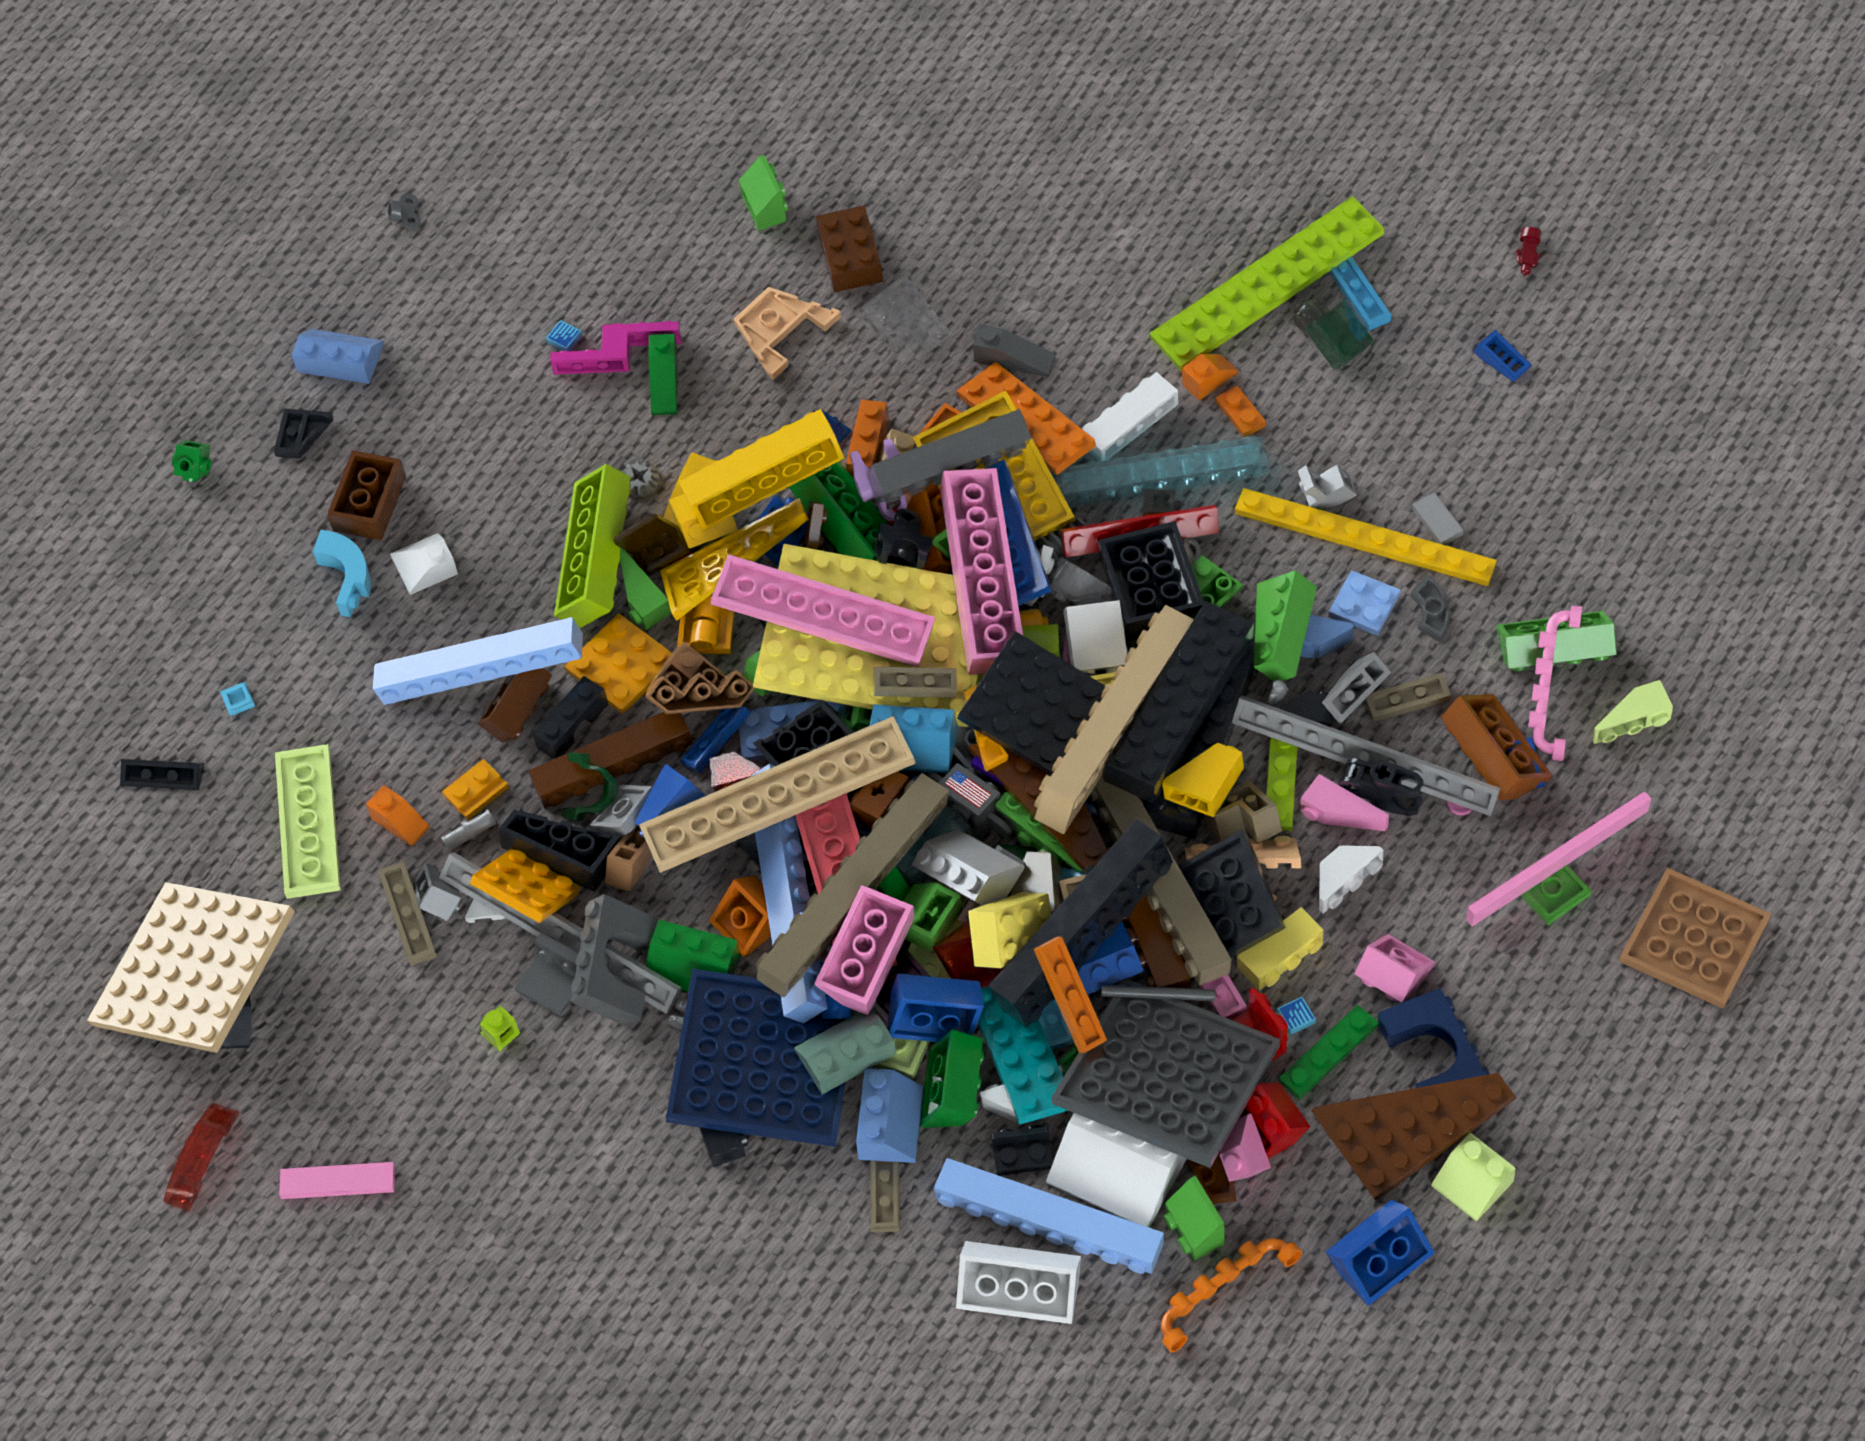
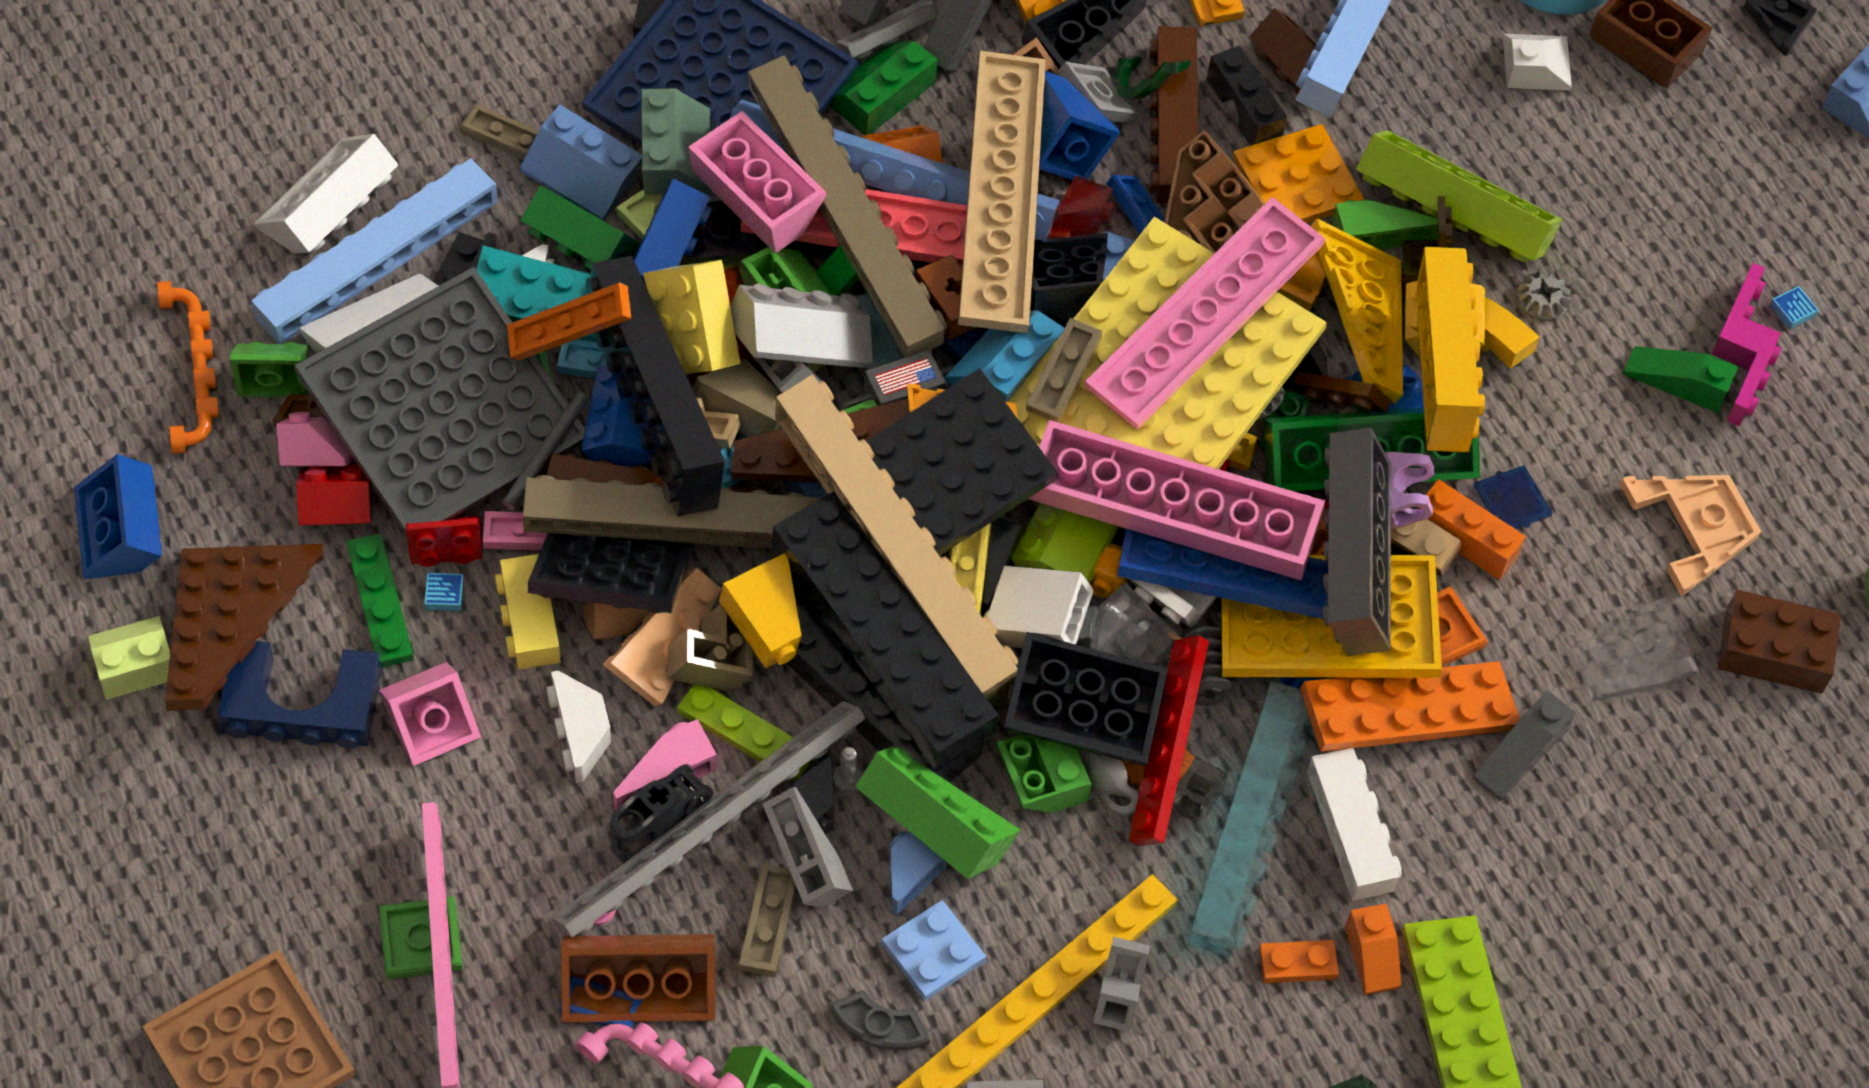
camera: 105 degrees right, 0 degrees up
(903, 540) = (1281, 461): black piece -> none

